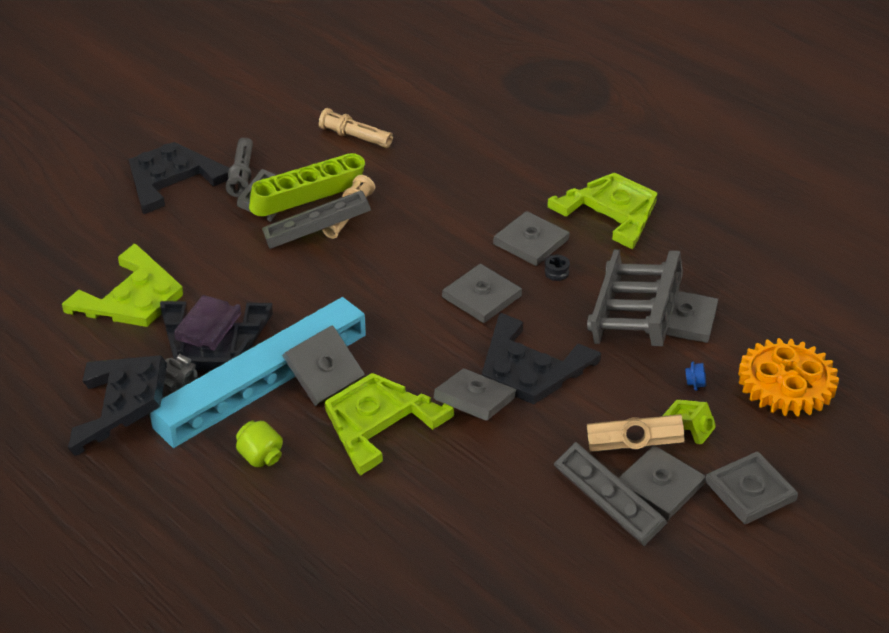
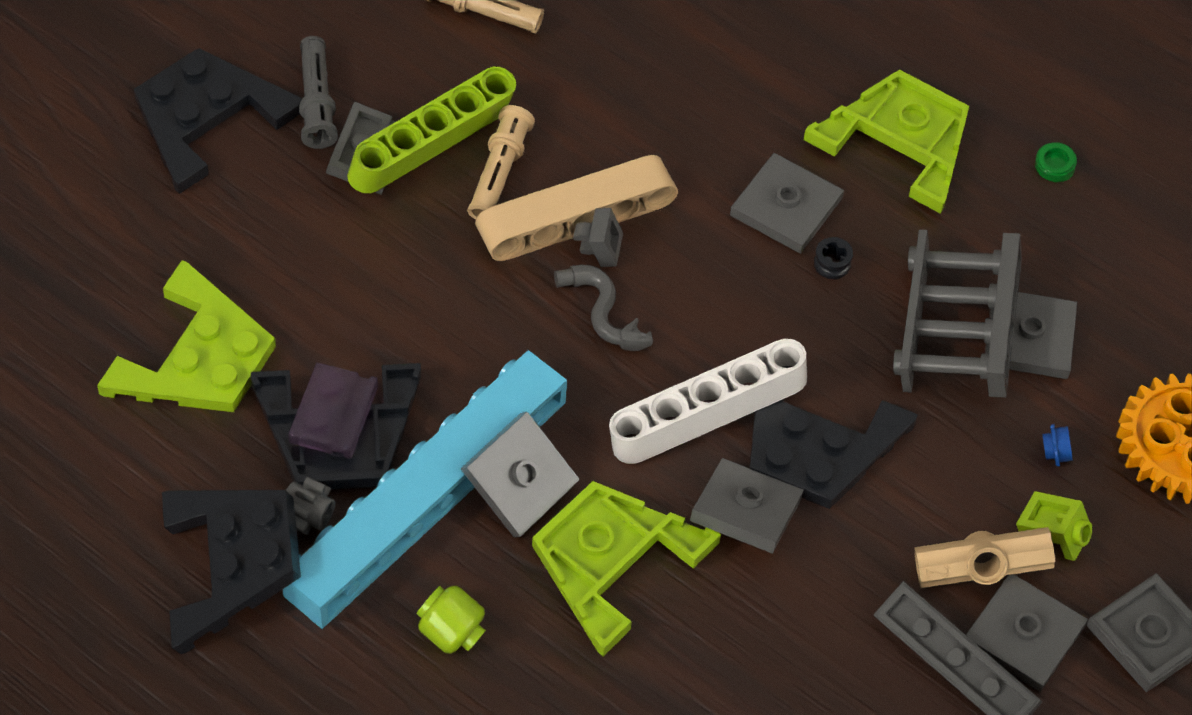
camera: 10 degrees left, 15 degrees up
(316, 219) = (458, 197): dark grey tile -> none
(392, 231) = (553, 212): none -> tan beam
(406, 246) = (600, 237): none -> dark grey tile
(412, 300) = (628, 337): none -> dark grey animal
(458, 333) = (698, 417): none -> white beam
(482, 293) = (727, 313): dark grey plate -> none
(713, 227) = (1055, 162): none -> green tile

